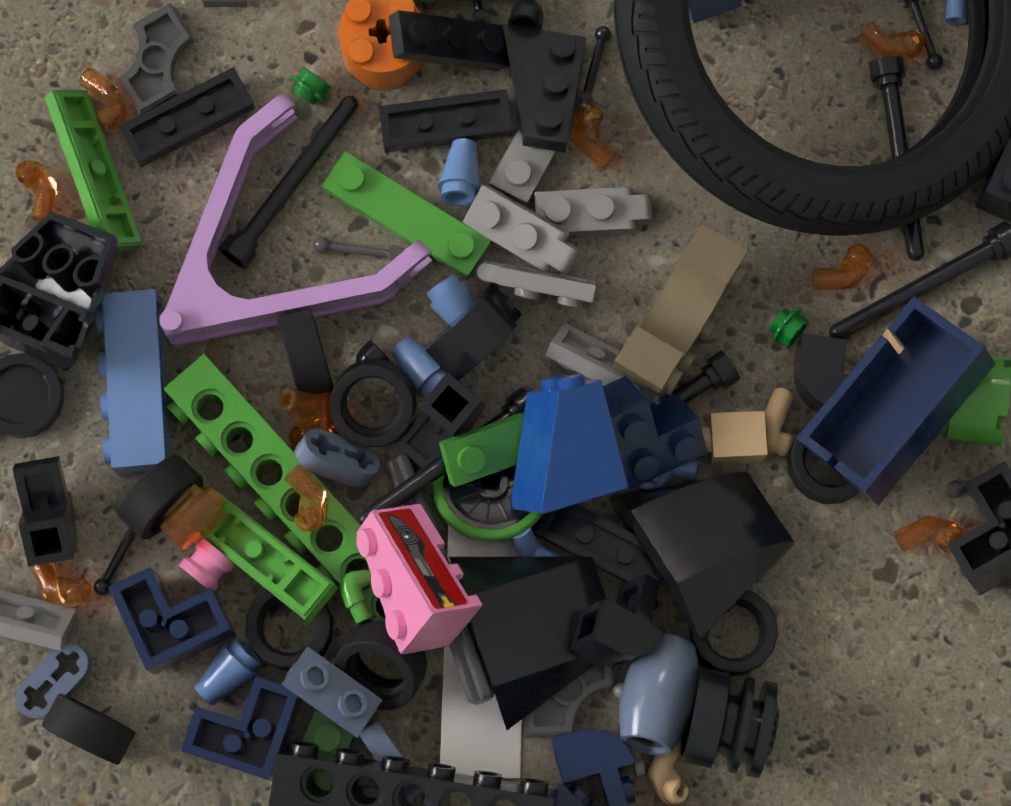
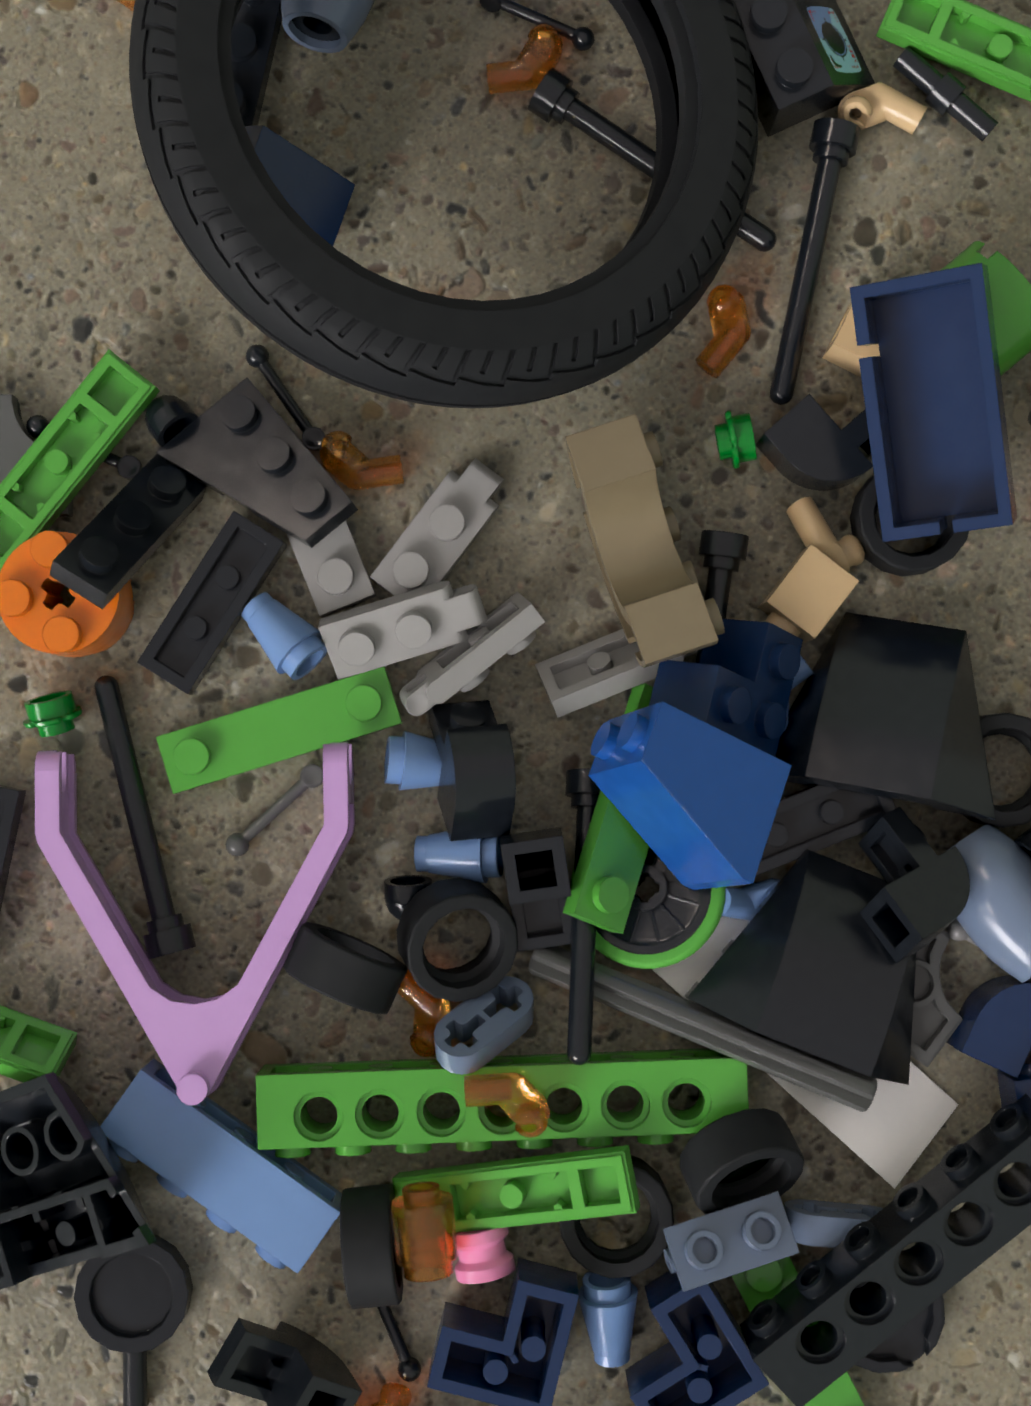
camera: 50 degrees left, 10 degrees up
(302, 406) = (403, 1019): clear orange arm -> none
(353, 596) = (646, 1134): bright green animal -> none
(413, 579) = (689, 1066): bright pink wedge -> none

